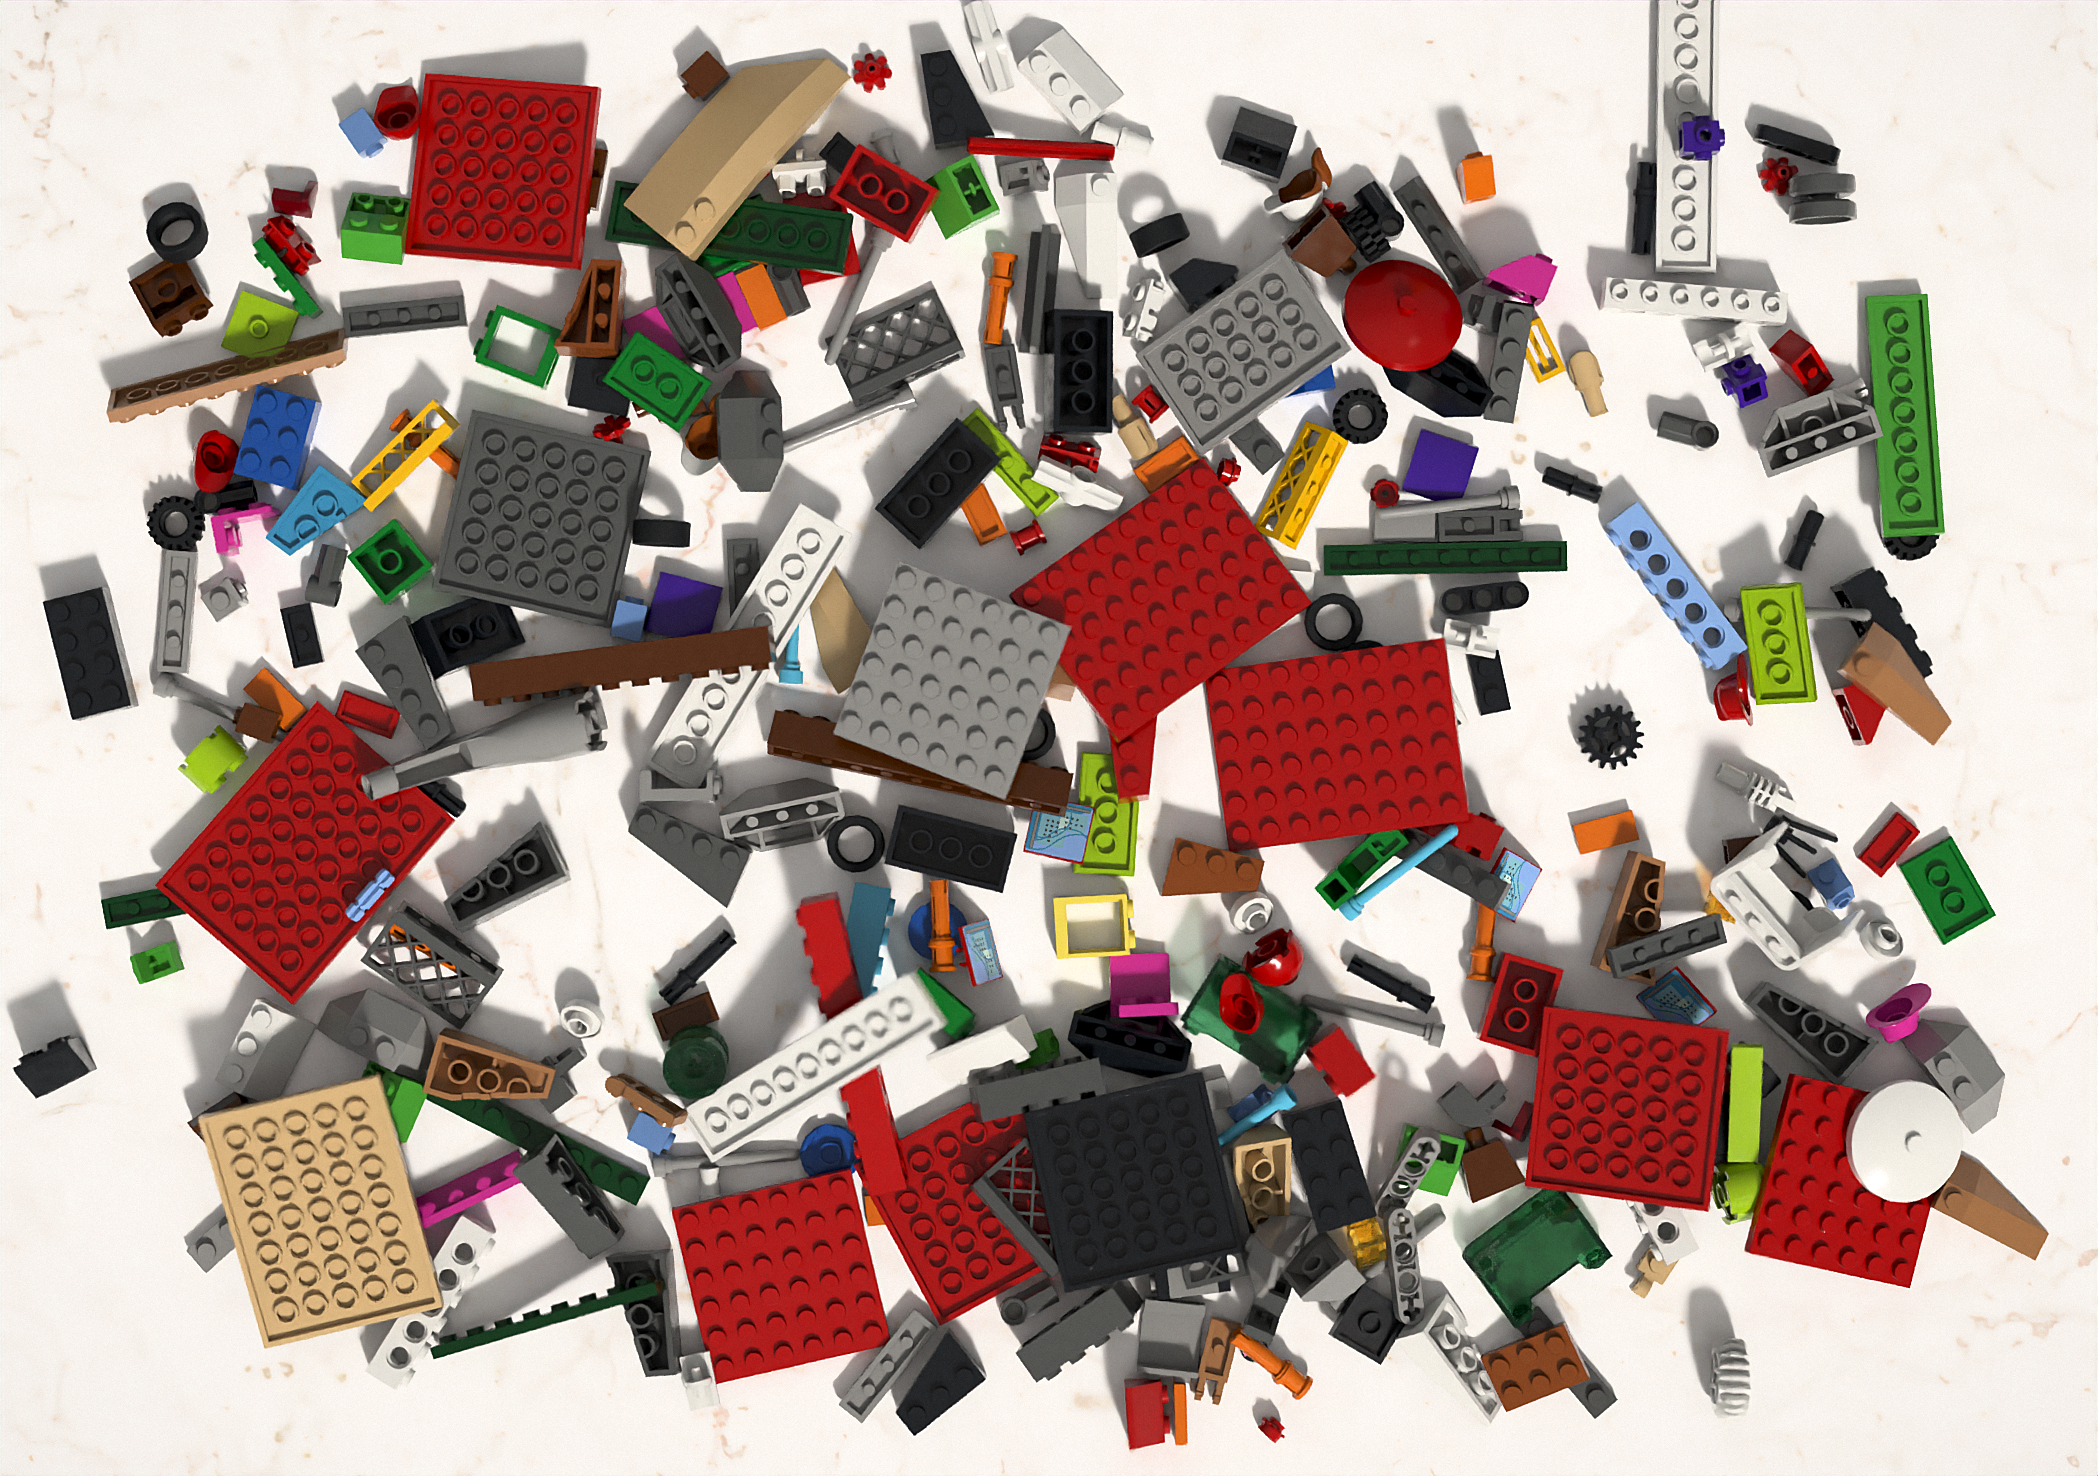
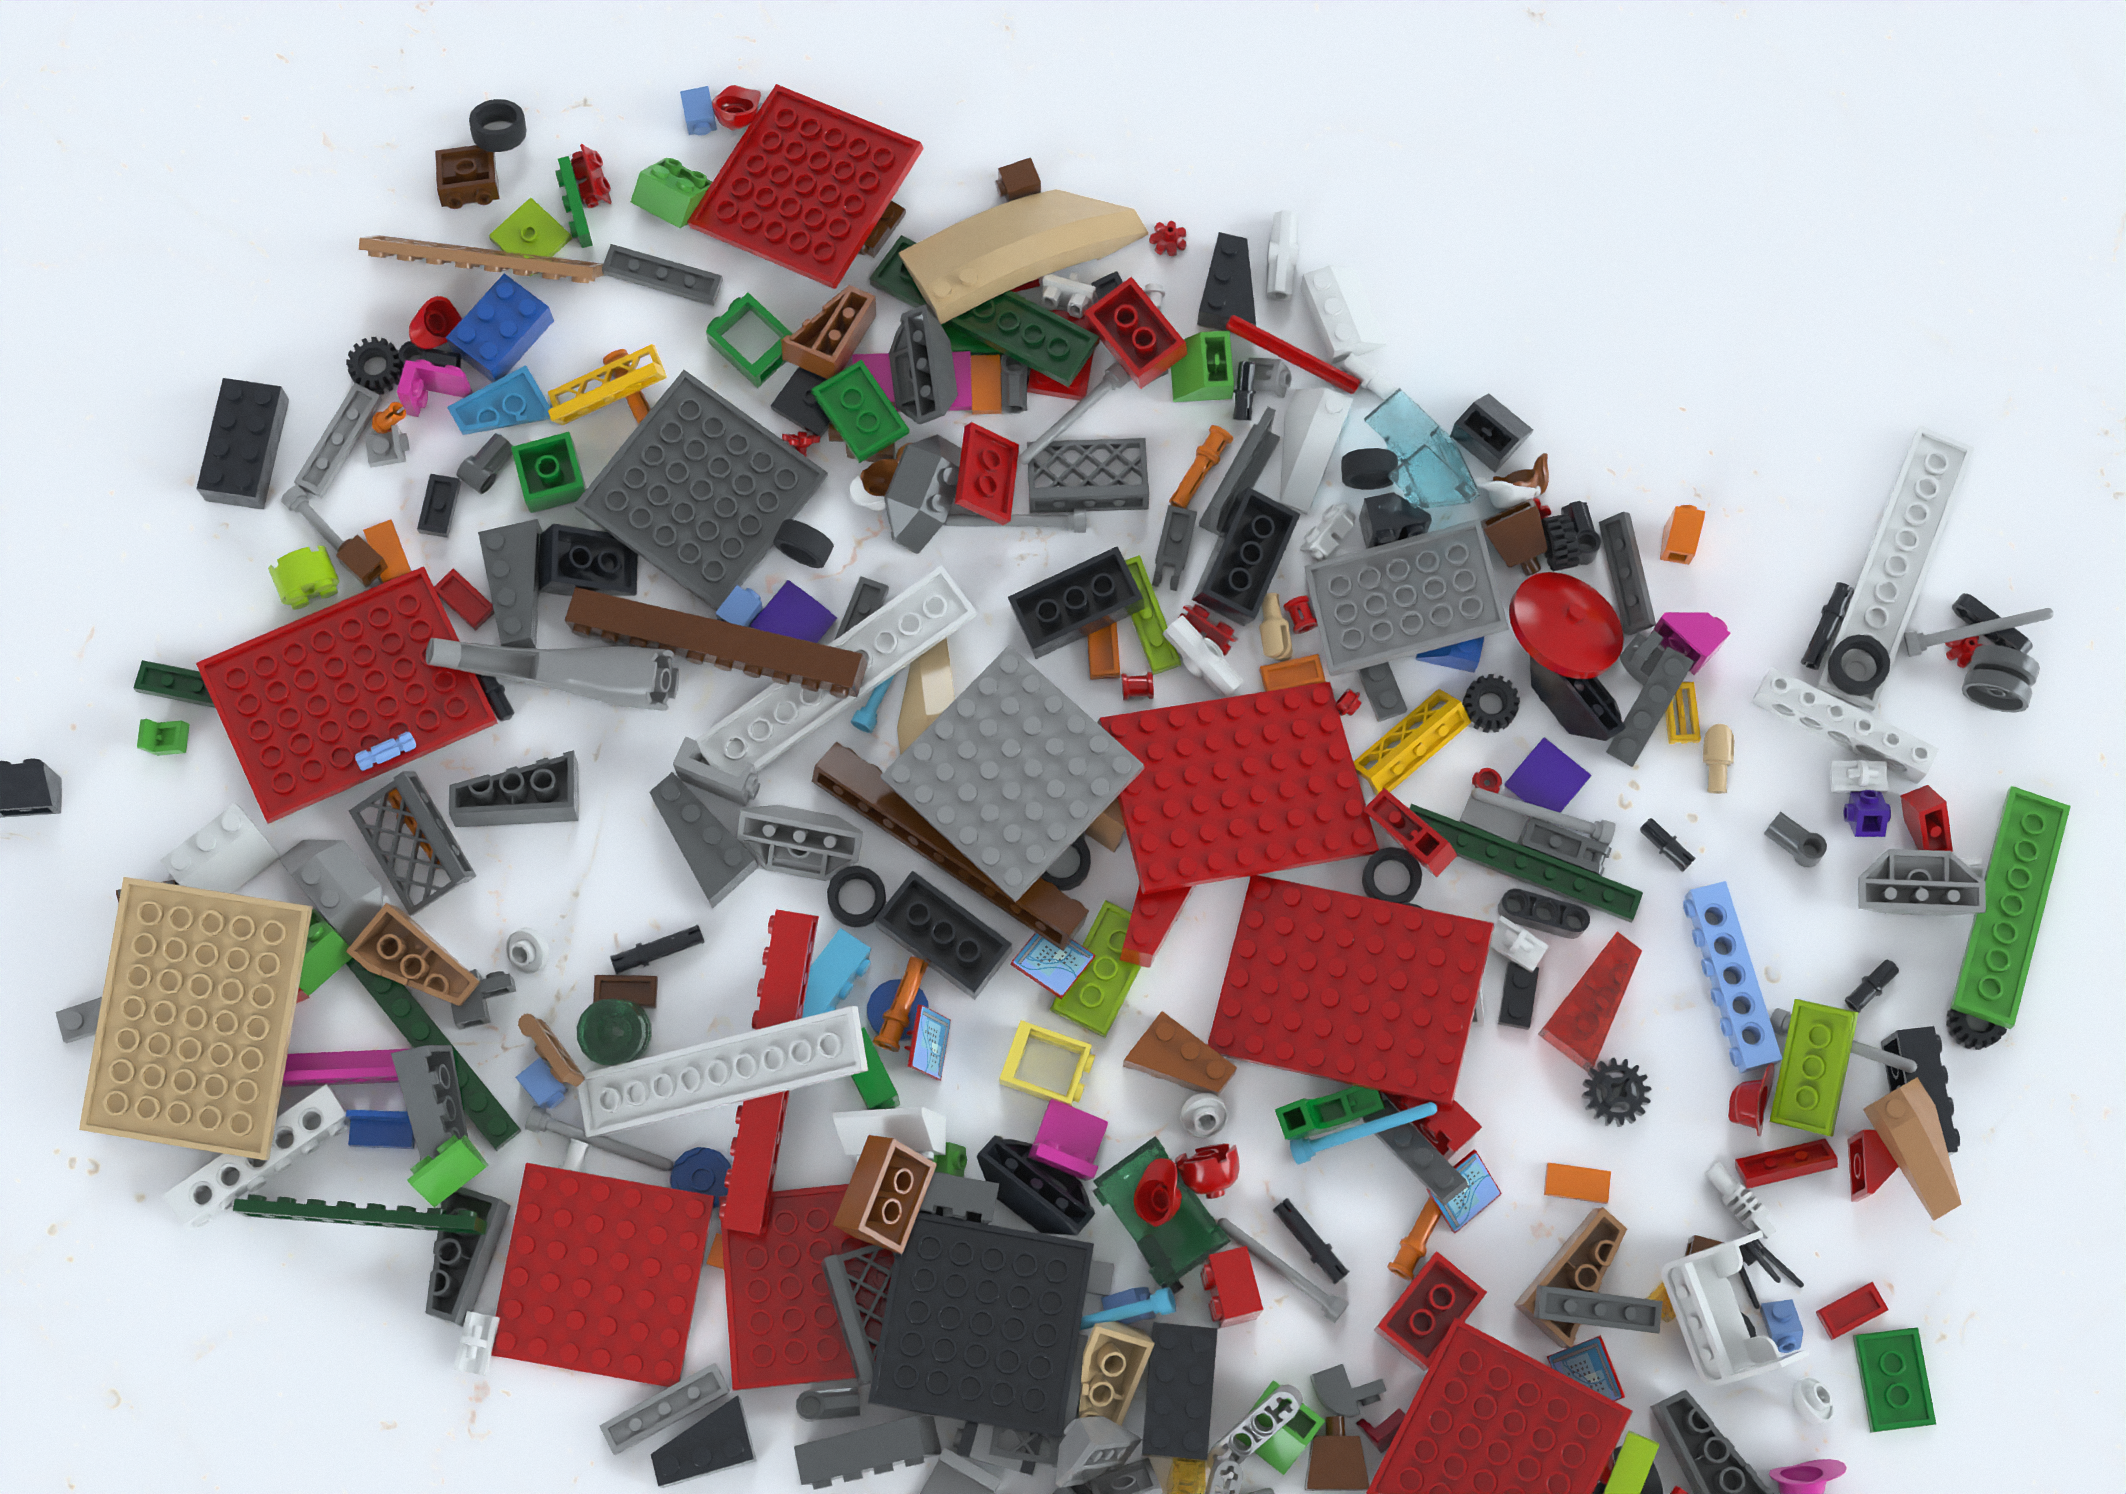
camera: 20 degrees right, 15 degrees down
(212, 575) = (383, 420): none -> orange pin
(295, 202) = (613, 143): dark red tile -> none
(526, 1232) = (380, 1129): none -> blue panel
(609, 1250) = (447, 1172): none -> bright green slope
(803, 392) = (987, 473): none -> red plate
(1003, 1112) = (885, 1193): none -> dark orange slope
(1010, 205) = (1244, 391): none -> black axle
(1215, 200) = (1431, 462): none -> clear light blue windscreen
(1334, 576) = (1411, 832): none -> red slope
(1558, 666) = (1587, 1012): none -> clear red wedge
(1691, 143) = (1905, 578): dark purple brick -> none
(1709, 244) = (1876, 651): none -> black tyre
(1734, 190) = (1919, 642): none -> light grey piece
(1784, 738) = (1786, 1163): none -> red plate

